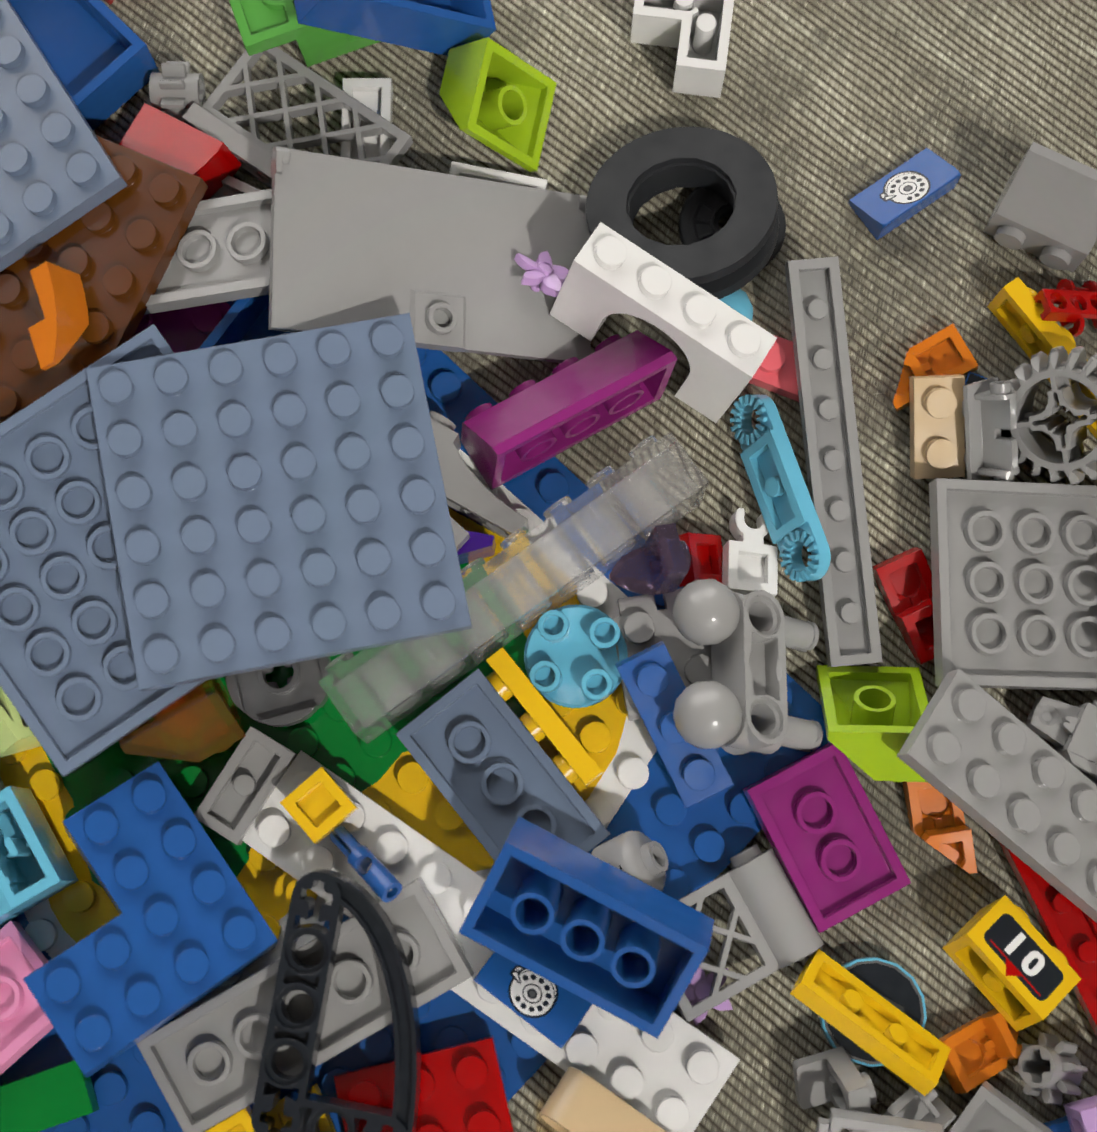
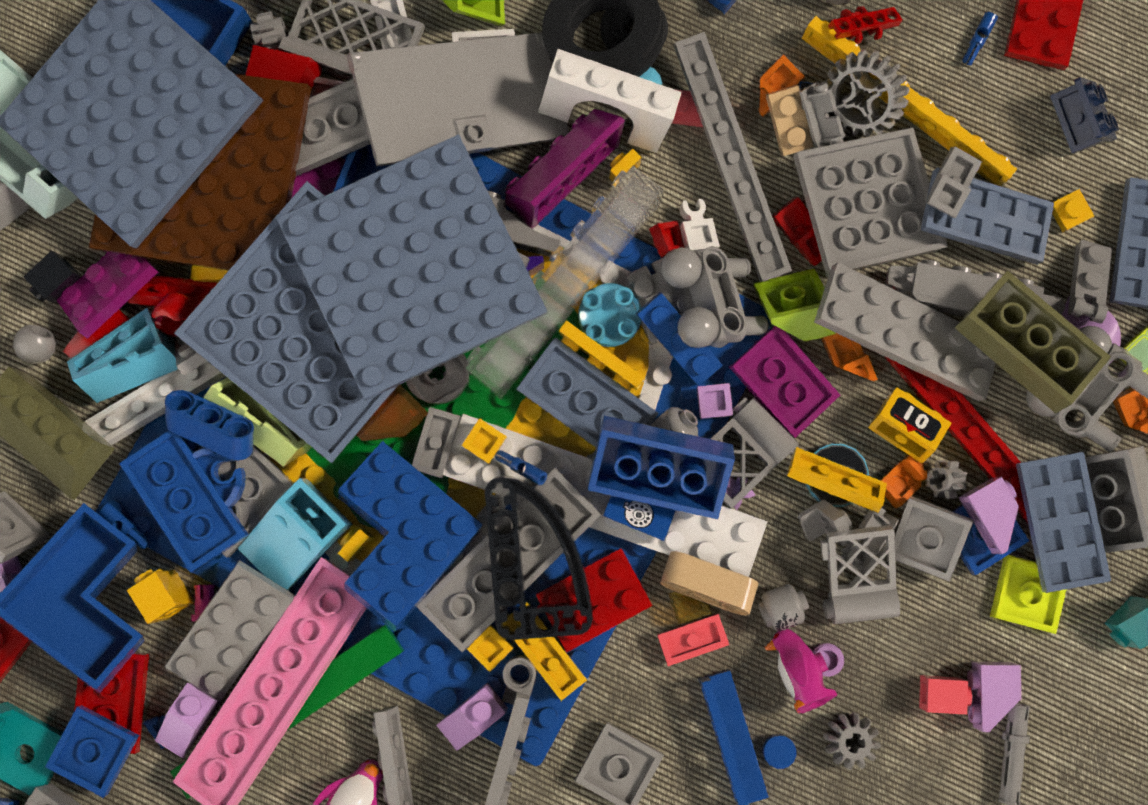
camera: 15 degrees left, 5 degrees up
(64, 312) = (250, 186): orange slope -> none
(69, 913) = (354, 543): none -> yellow plate
(542, 274) = (528, 89): lavender plant -> none
(655, 566) = (644, 247): clear purple plate -> none
(660, 423) = (624, 163): none -> yellow plate
(705, 838) = (714, 401): none -> lavender plate
(780, 488) = (705, 182): medium azure plate -> none

